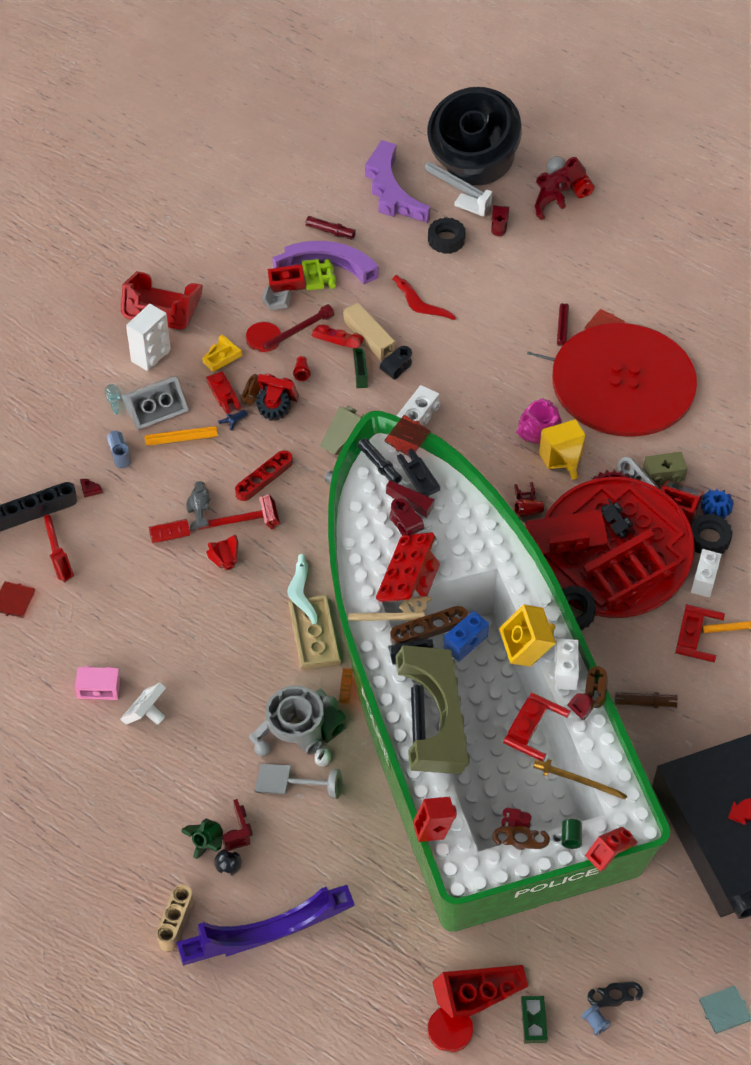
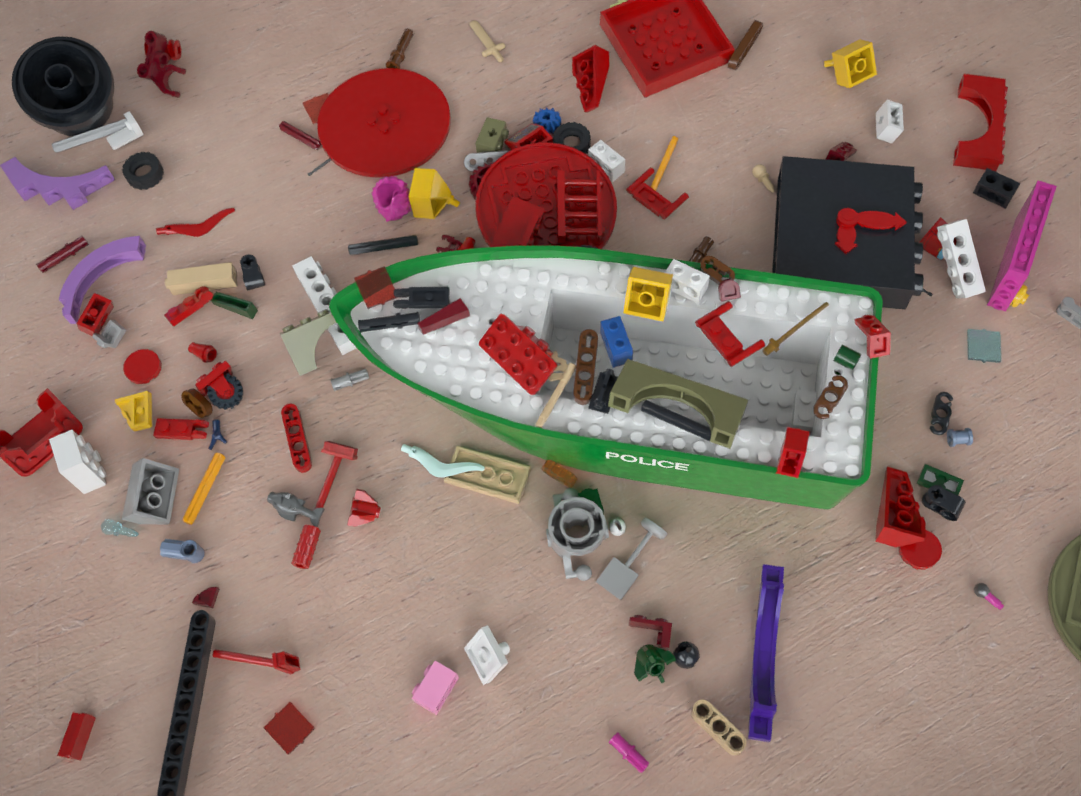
camera: 55 degrees left, 10 degrees up
(117, 856) = (629, 752): none -> dark pink axle
(313, 274) = (112, 292): lime plate -> none
(325, 312) = (155, 303): dark red piece -> none
(405, 517) = (466, 330): dark red piece -> none
(492, 443) = (385, 244): none -> black axle
(499, 220) = (157, 124): dark red piece -> none
(511, 1032) = (944, 503): none -> black piece
(516, 818) = (814, 391): dark red piece -> none
(555, 163) = (134, 56): light grey piece -> none
(613, 512) = (520, 189): black hinge -> none
(705, 351) = (397, 54): none -> reddish brown pin

